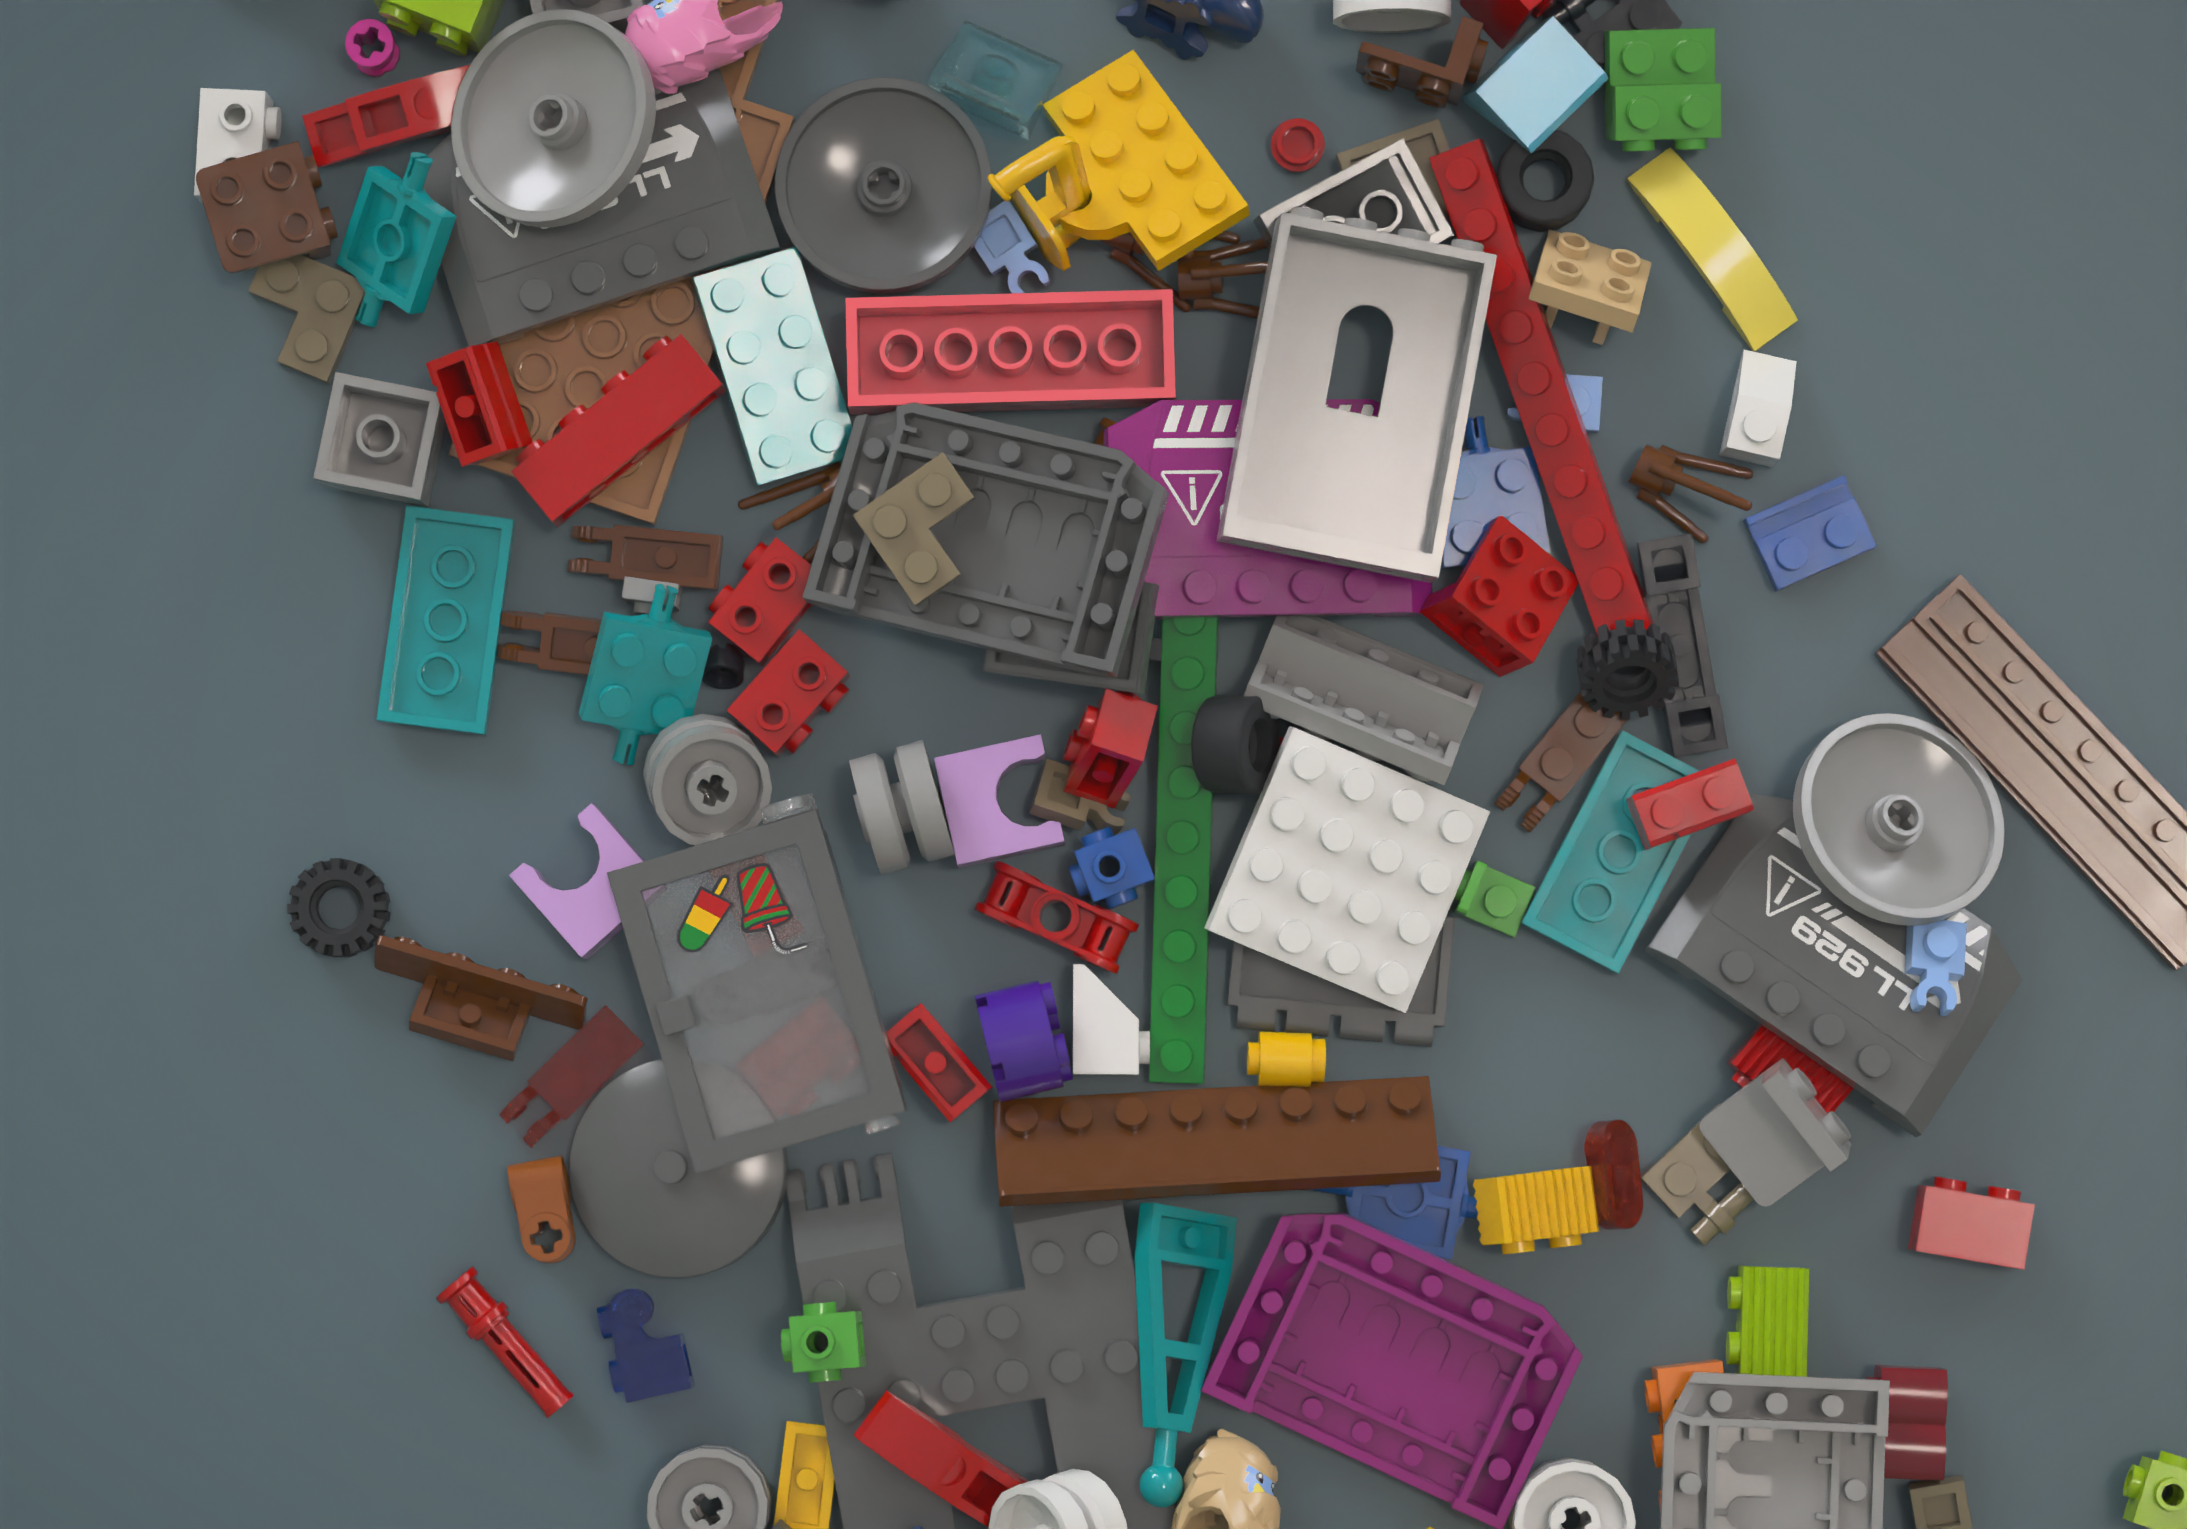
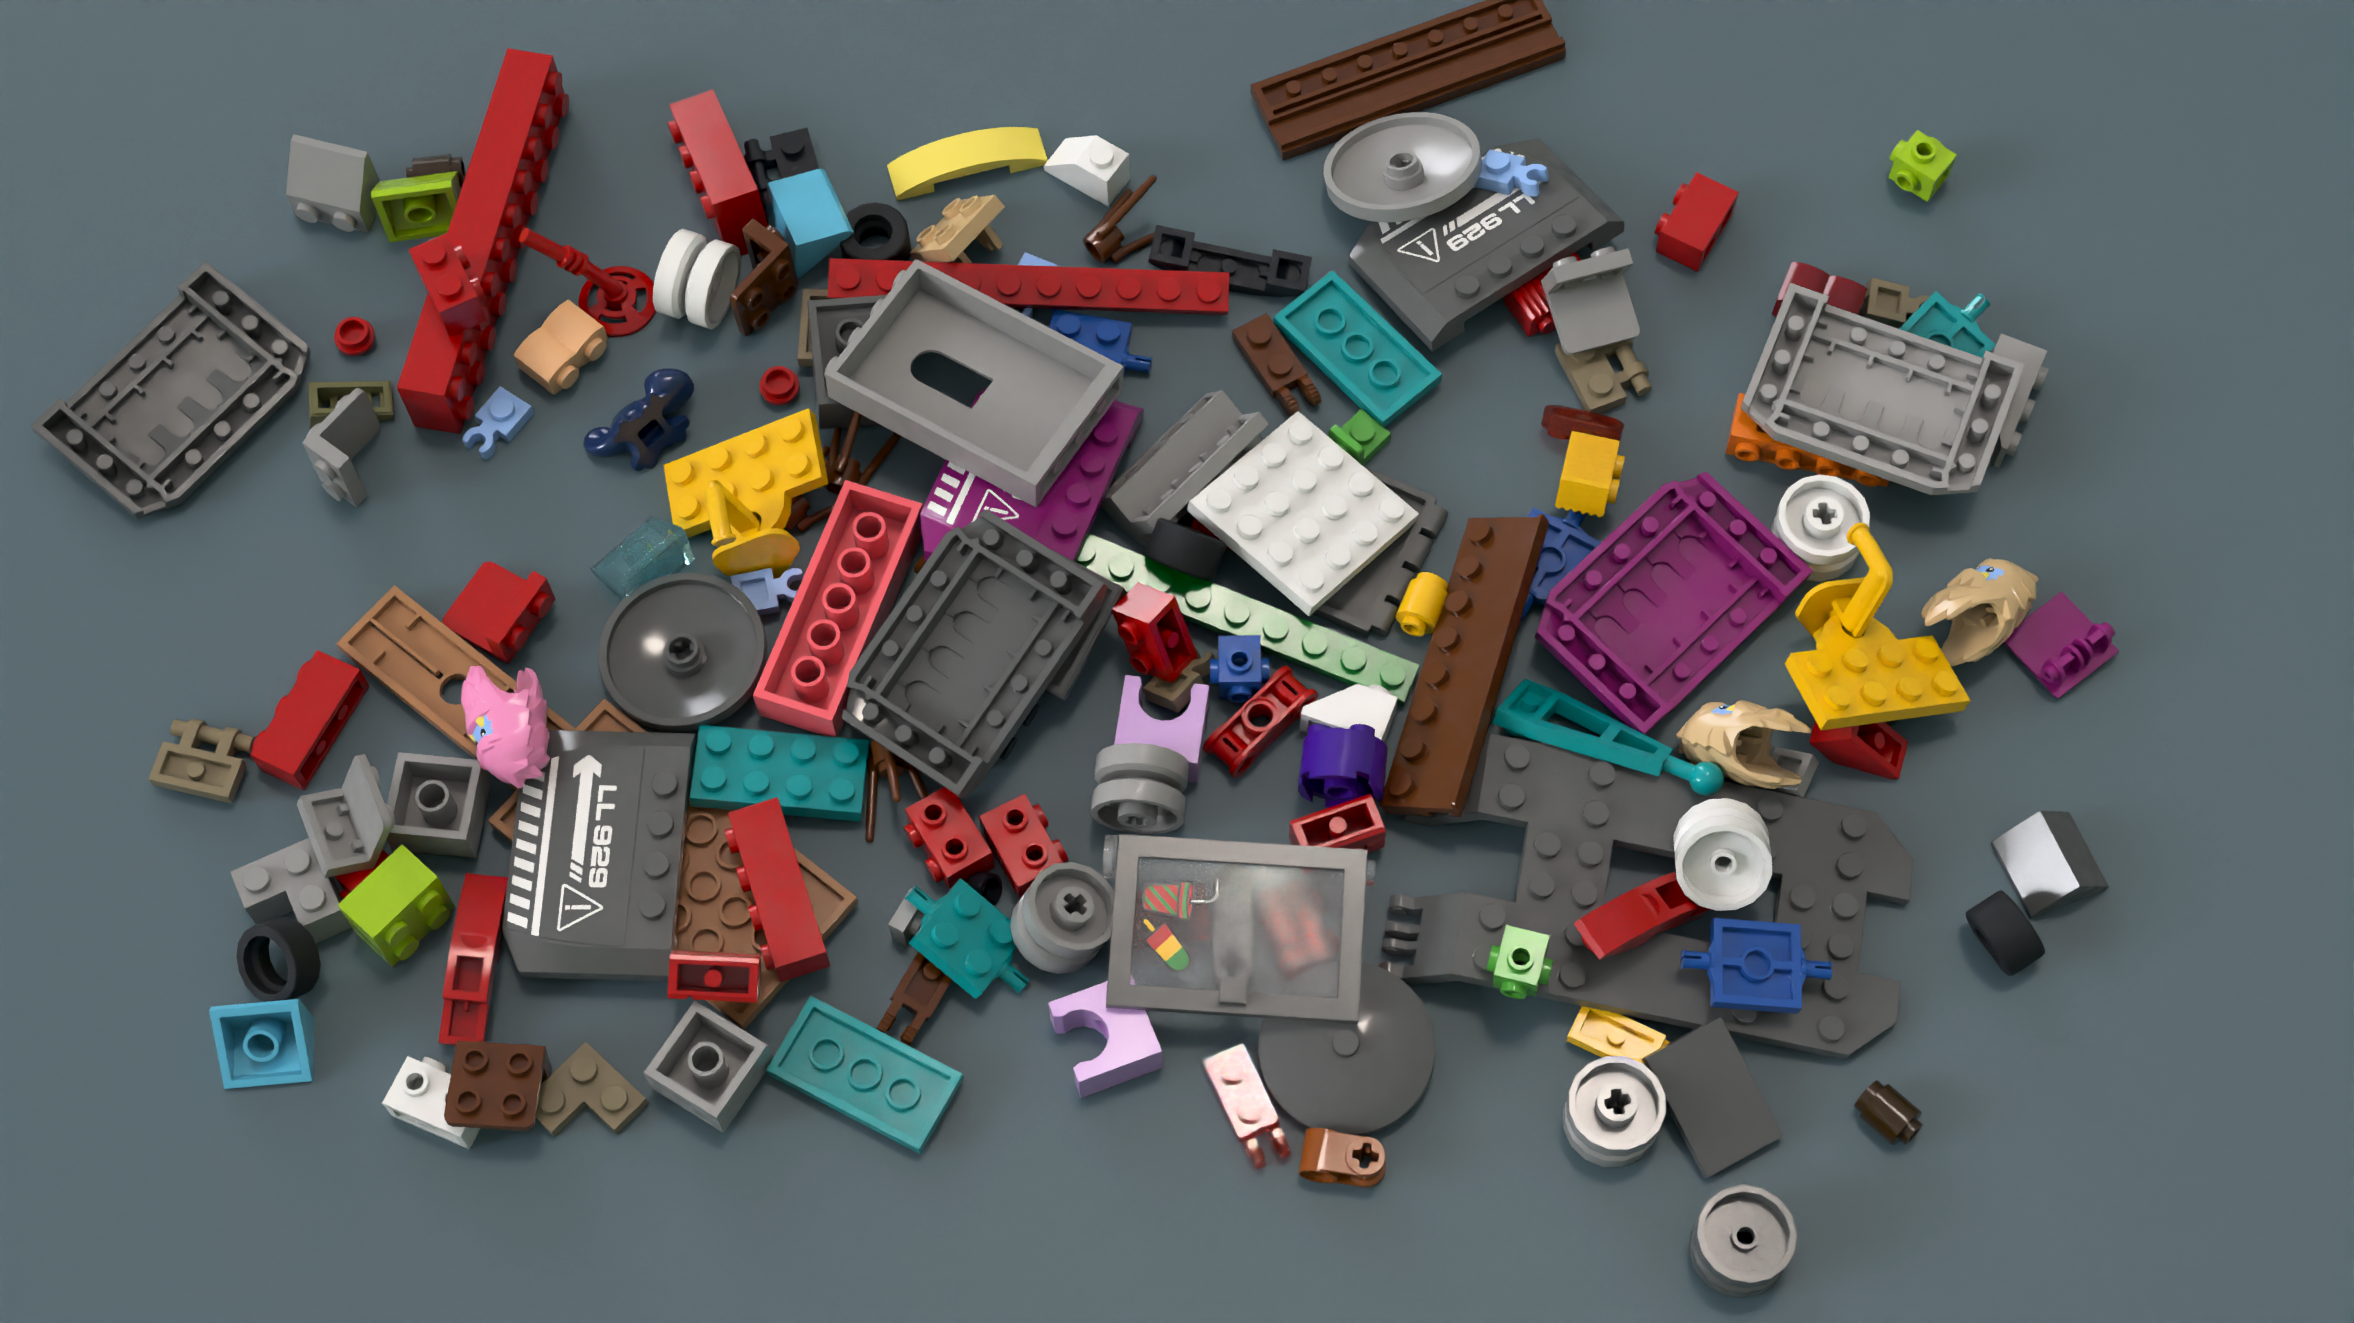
camera: 70 degrees left, 20 degrees down
(306, 900) = (1046, 1205): black tyre -> none
(366, 33) = (418, 964): dark pink bush -> none
(395, 239) = (563, 1000): teal plate -> none
(475, 1002) = (1162, 1153): reddish brown bracket -> none
(488, 1322) = (1411, 1226): red pin -> none
(553, 118) = (528, 839): light grey dish -> none
(643, 1363) = (1486, 1126): clear blue brick -> none
(653, 554) = (876, 910): reddish brown hinge -> none
(902, 524) = (938, 704): dark tan plate -> none
(1503, 599) = (1160, 357): red bracket -> none
(1627, 648) = (1219, 294): black tyre -> none
(1661, 88) = (847, 148): bright green plate -> none
(1690, 804) = (1343, 282): brick -> none
(1770, 1320) = (1717, 361): lime brick -> none
(1809, 533) = (1185, 168): plate -> none

